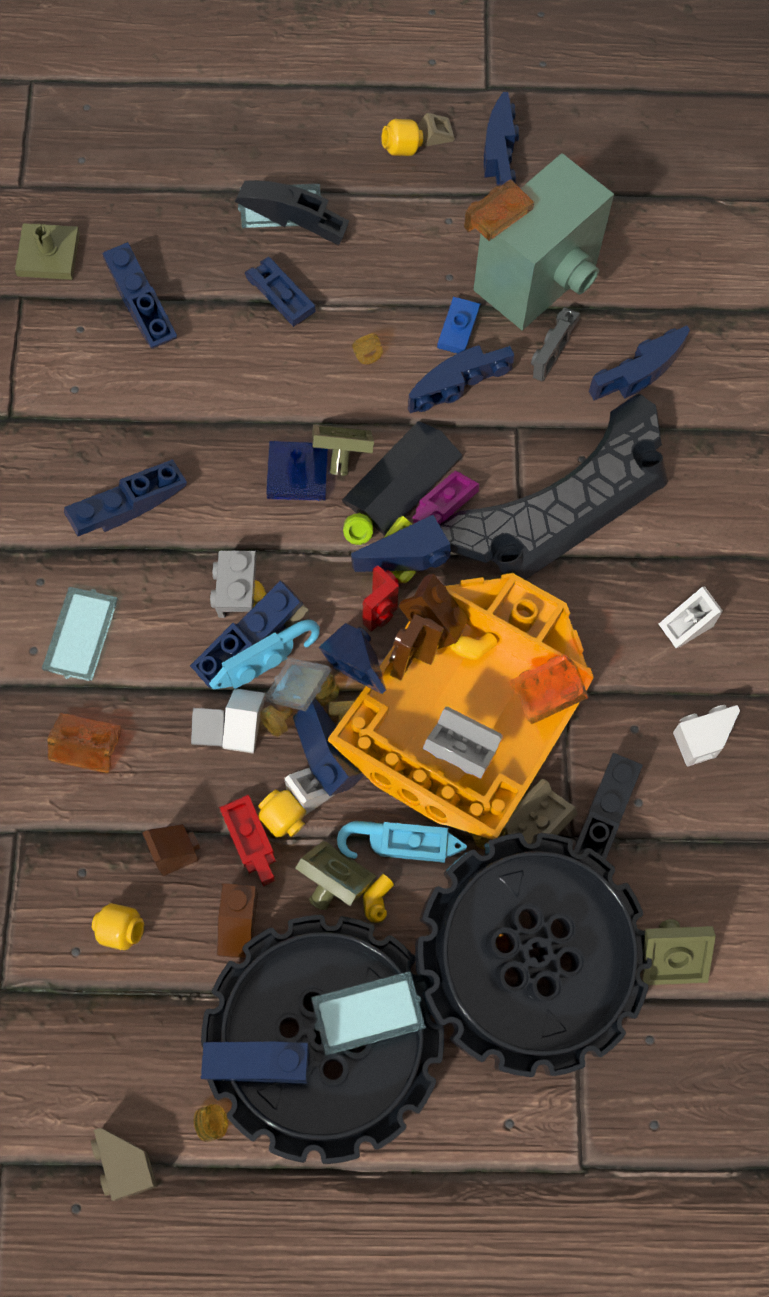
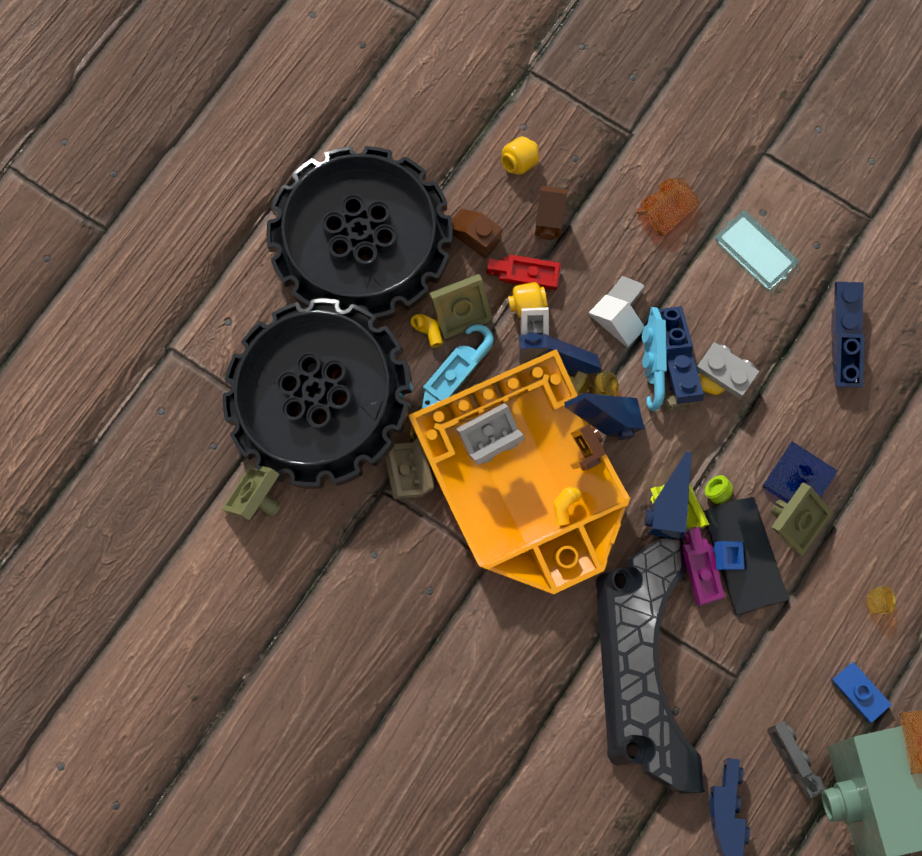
camera: 125 degrees right, 5 degrees up
(125, 1166) = (367, 80): dark tan slope -> none
(210, 1122) = (357, 139): clear yellow tile -> none
(255, 1061) = (365, 172): dark blue slope -> none
(275, 720) = (601, 338): clear yellow tile -> none
(297, 684) = (618, 367): clear piece -> none
(368, 1013) = (350, 258): clear light blue piece -> none
(382, 601) = (641, 462): red bracket -> none
(419, 481) = (729, 555): none -> blue tile
(436, 603) = (604, 486): reddish brown bracket -> none
(448, 379) = (811, 643): dark blue slope -> none
(549, 688) = (492, 529): clear orange bracket -> none
(608, 805) = (380, 519): black slope -> none
(691, 618) = (483, 689): white slope -> none
(706, 735) = (386, 632): white slope -> none

